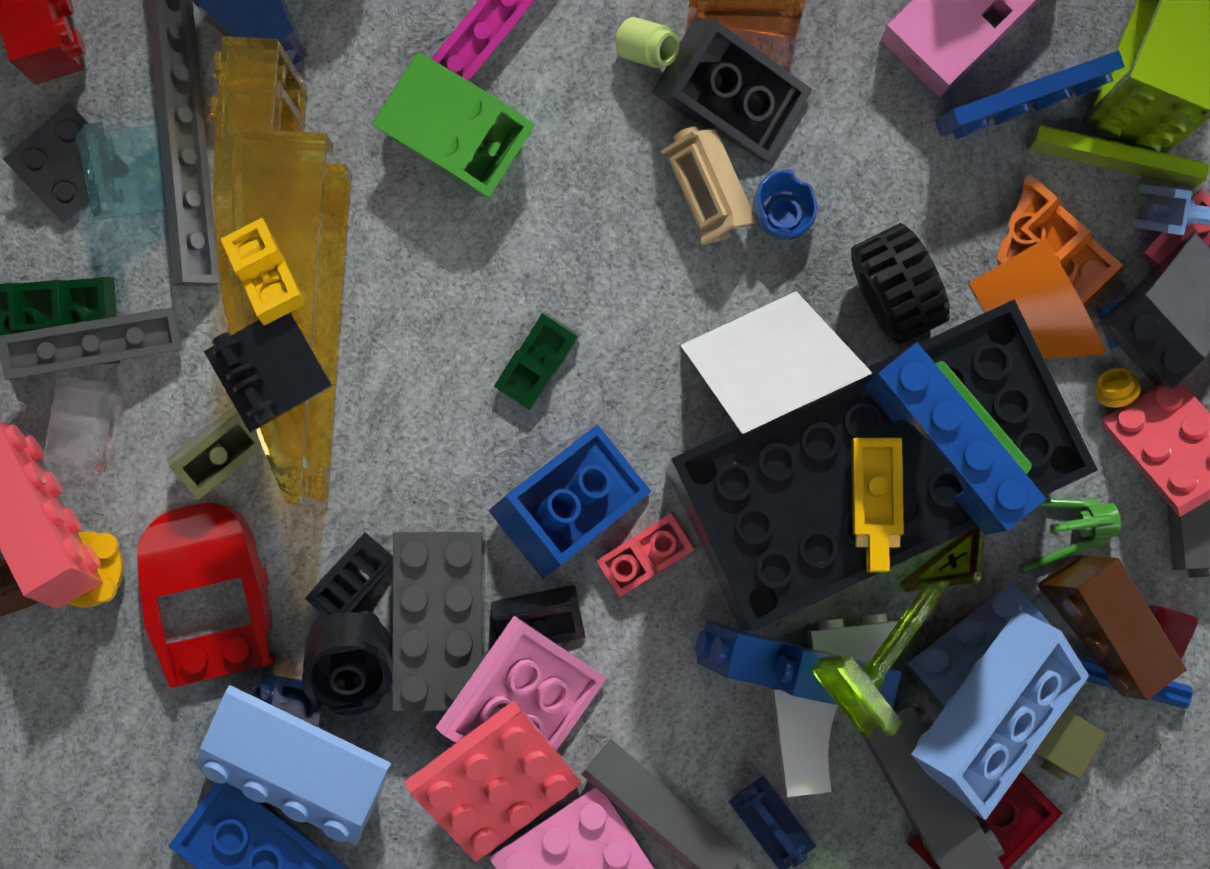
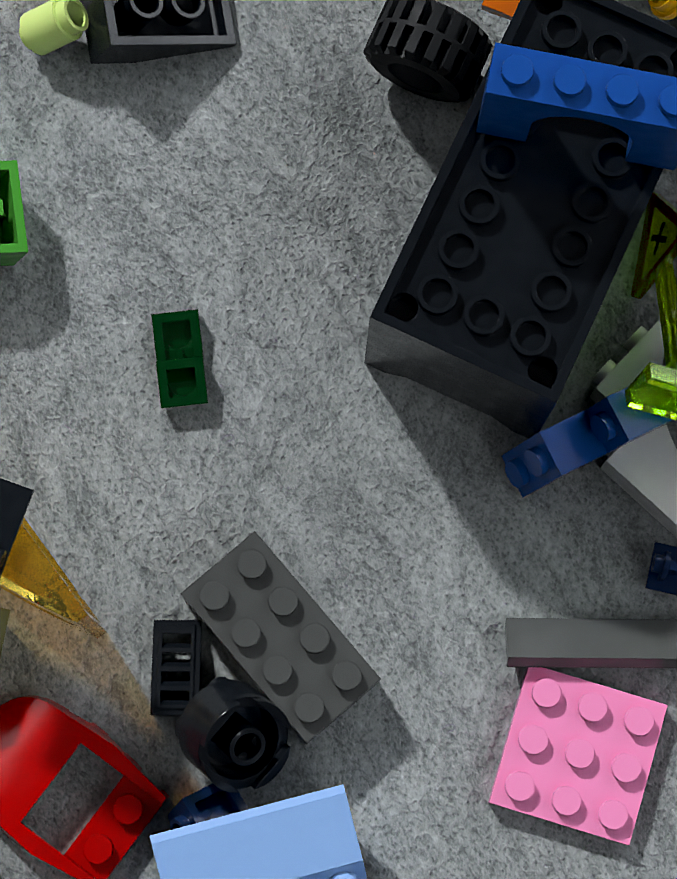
camera: 50 degrees left, 5 degrees down
(493, 782) = (441, 729): coral plate -> none
(536, 675) = (408, 643): bright pink plate -> none
(549, 612) = (361, 571): black slope -> none
(569, 501) = (306, 451): blue slope -> none
(646, 554) = (405, 442): coral slope -> none
(709, 183) = (195, 77): tan window -> none
(773, 361) = (381, 185): white sticker -> none
(784, 205) = (278, 66): blue hair -> none
(877, 498) = (566, 209): yellow hinge -> none

